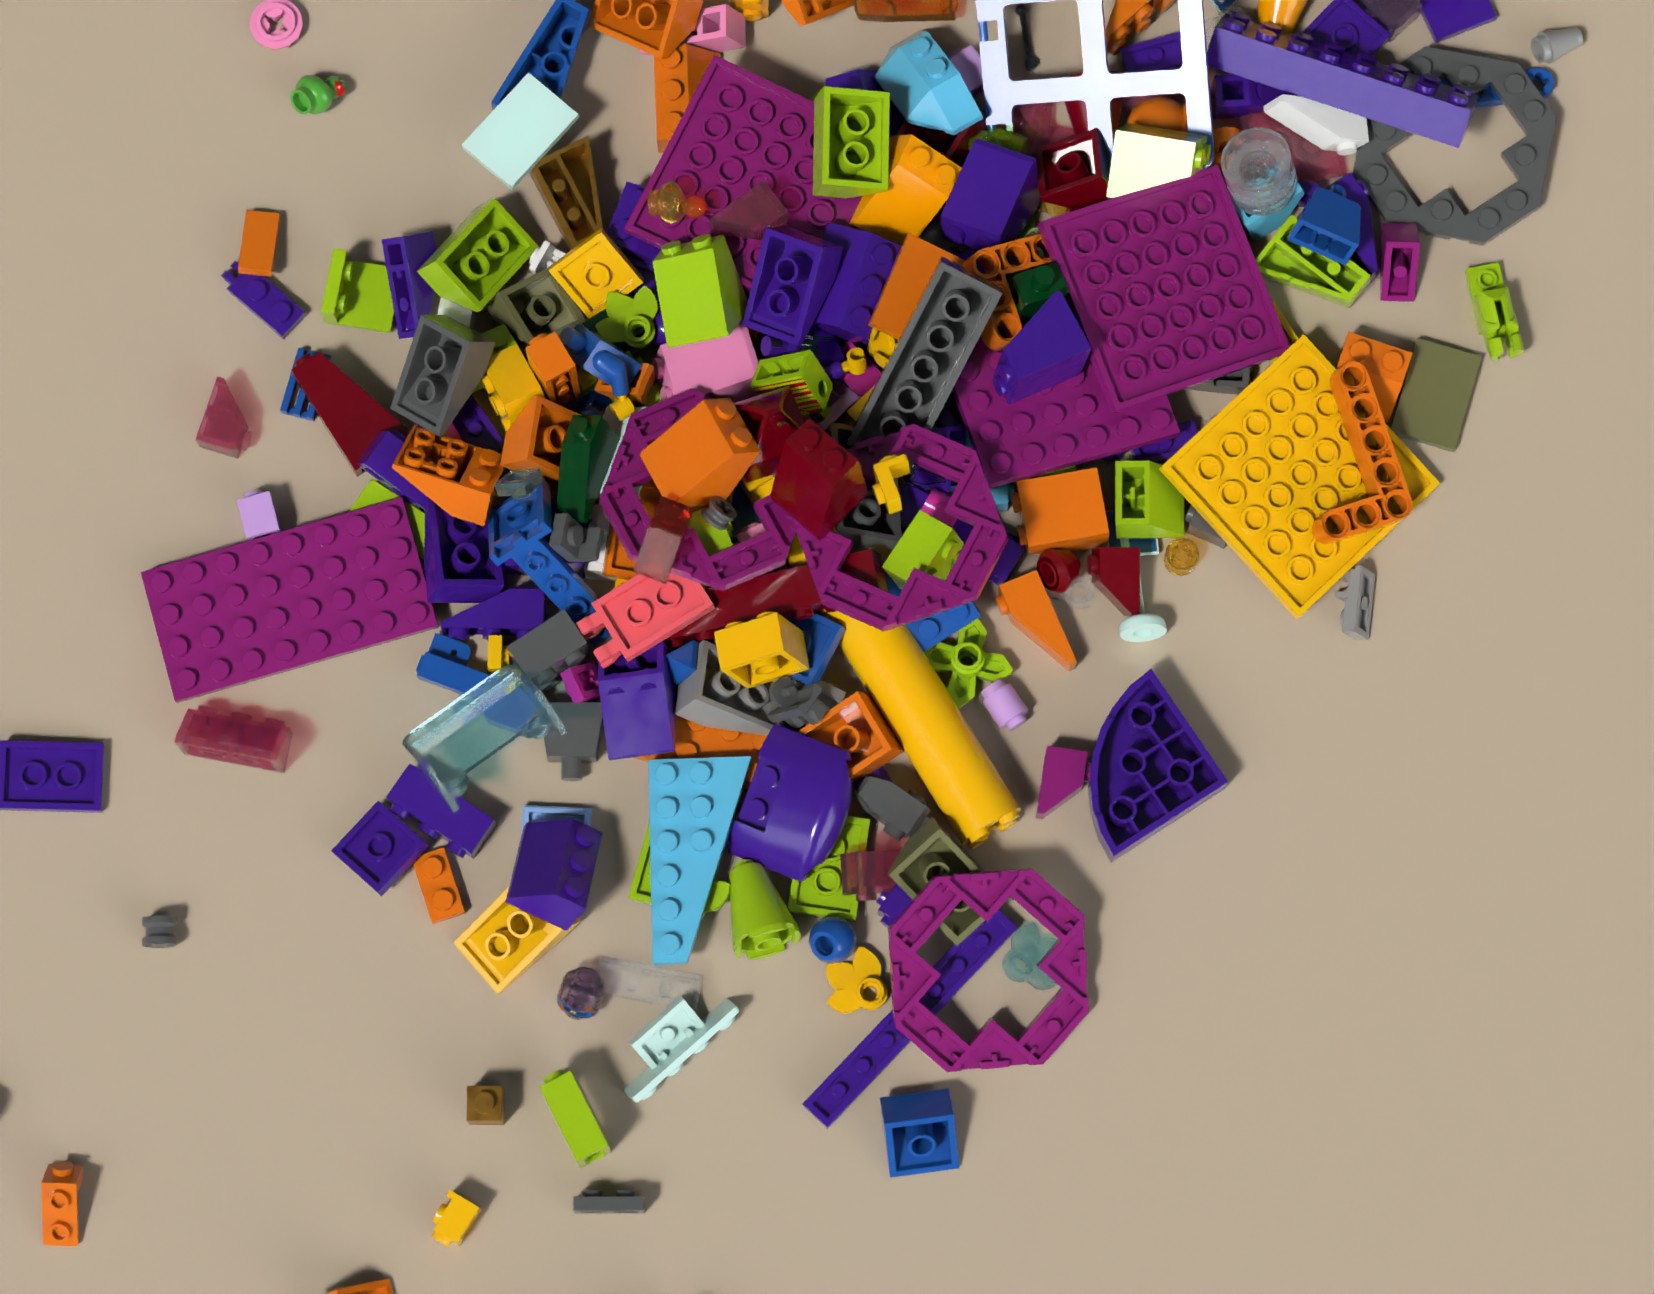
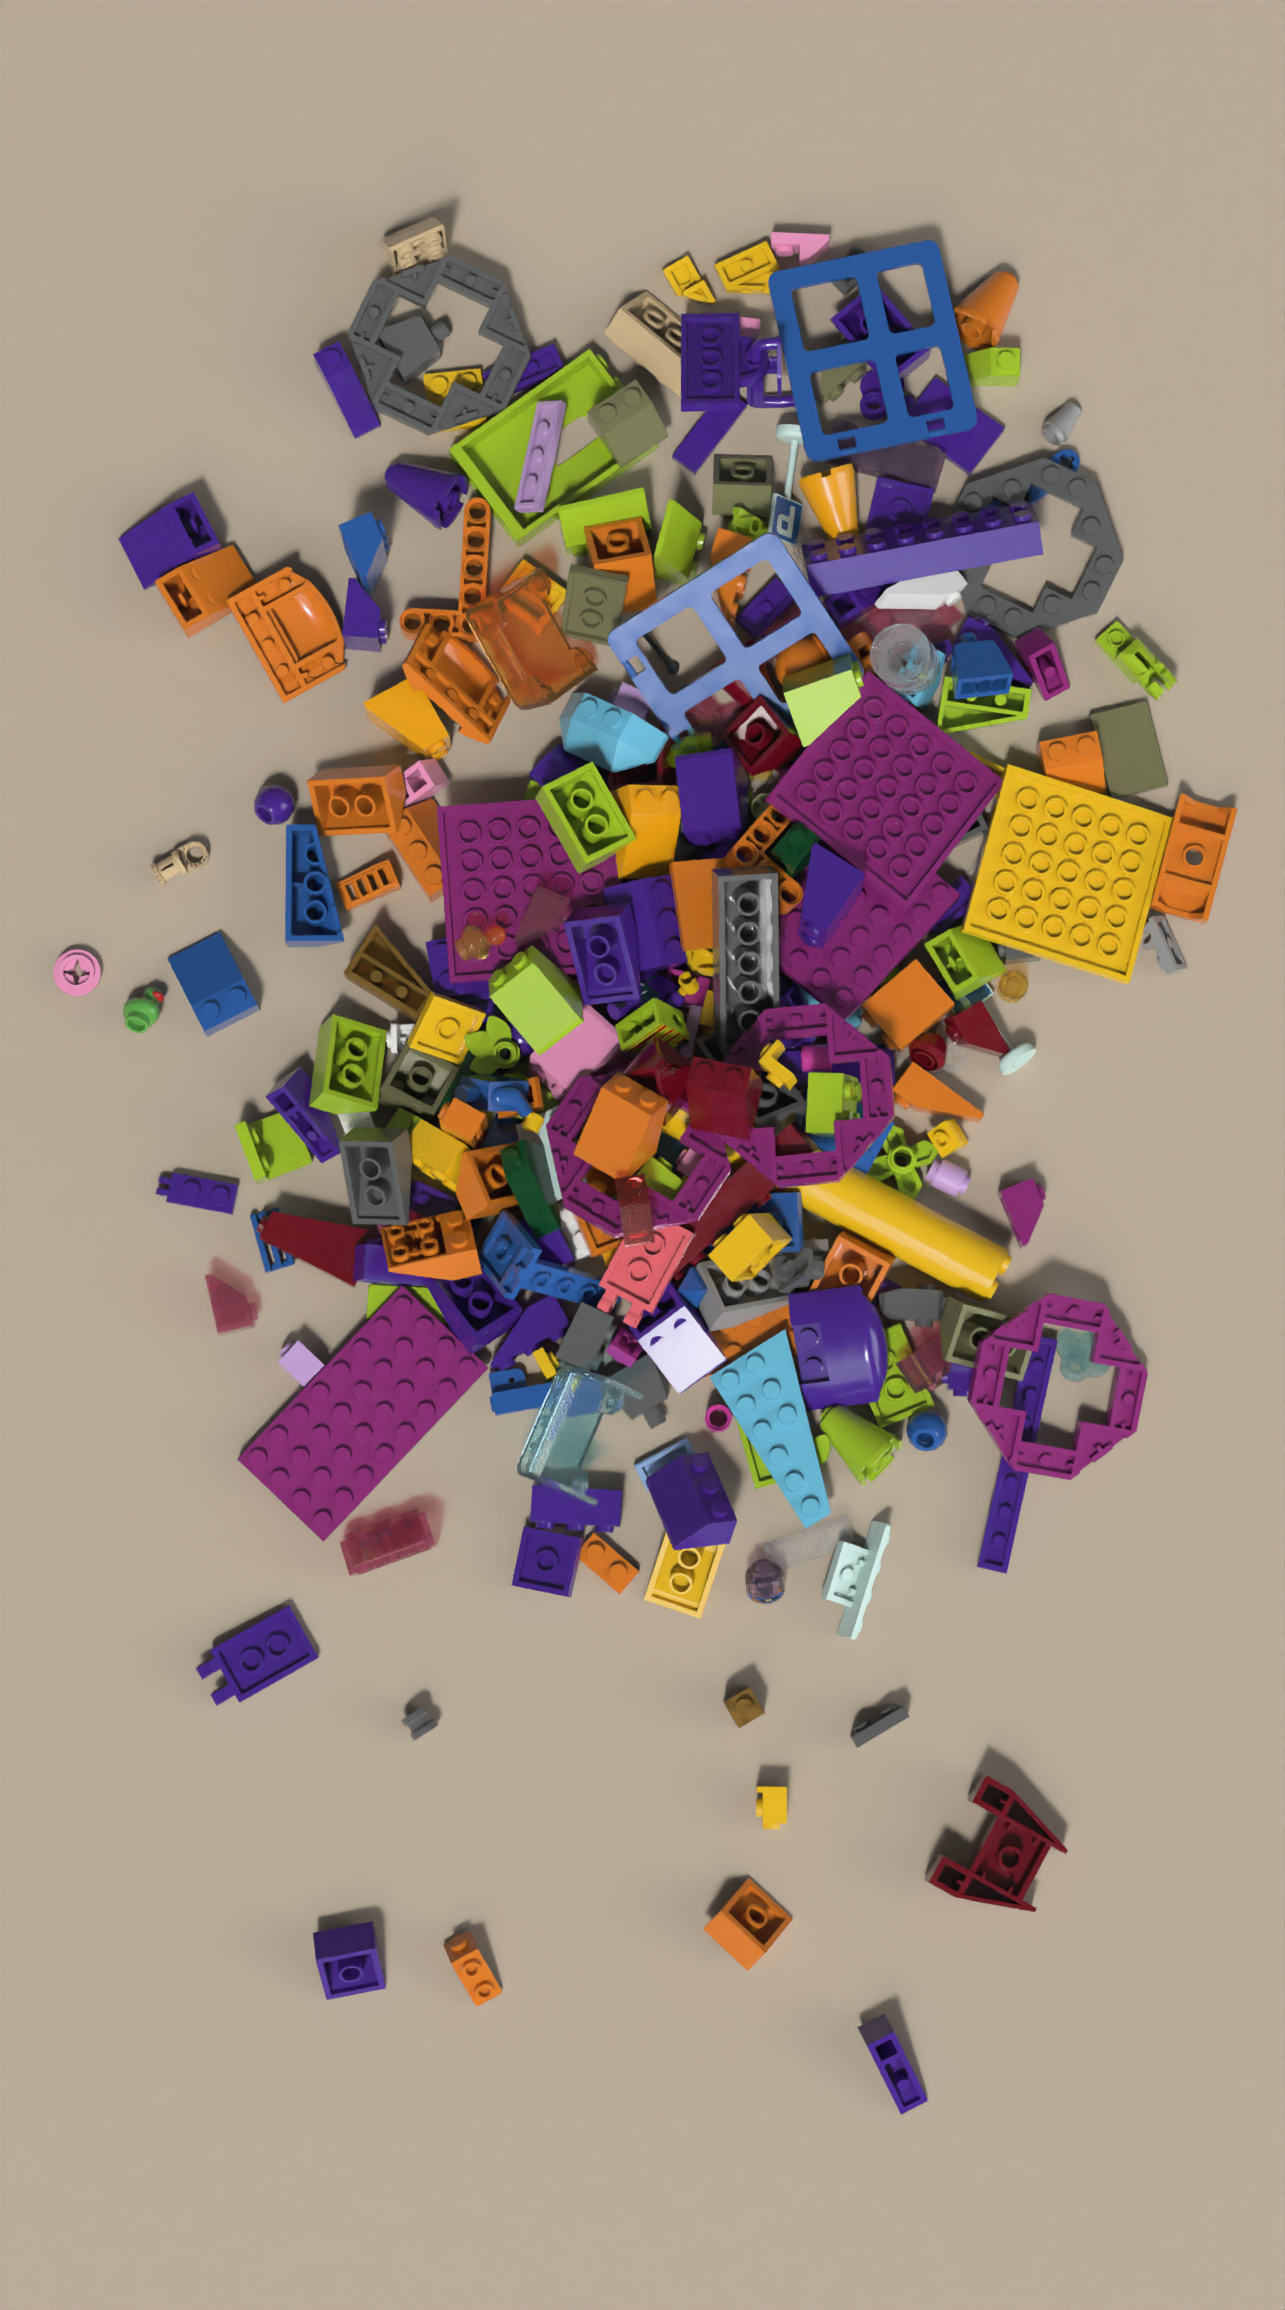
camera: 30 degrees left, 5 degrees up
(259, 243) = (170, 1152): orange tile -> none
(399, 110) = (213, 984): none -> blue slope
(518, 483) = (490, 1226): clear light blue plate -> none
(520, 131) = (322, 951): light aqua tile -> none
(574, 541) = (561, 1246): dark grey bracket -> none
(574, 1117) = (817, 1678): lime window -> none
(619, 113) = (384, 866): none -> orange slope
(629, 795) = (725, 1410): none -> dark pink beam
(719, 513) = (660, 1163): dark grey bush -> none
(853, 979) = (958, 1450): yellow plate -> none
(919, 1132) = (1076, 1536): blue slope -> none
(1027, 664) = (947, 1137): none -> yellow bracket
(1146, 768) = (1082, 1164): dark purple brick -> none
(1366, 460) = (1112, 834): orange beam -> none
(1411, 558) = (1187, 888): none -> orange piece

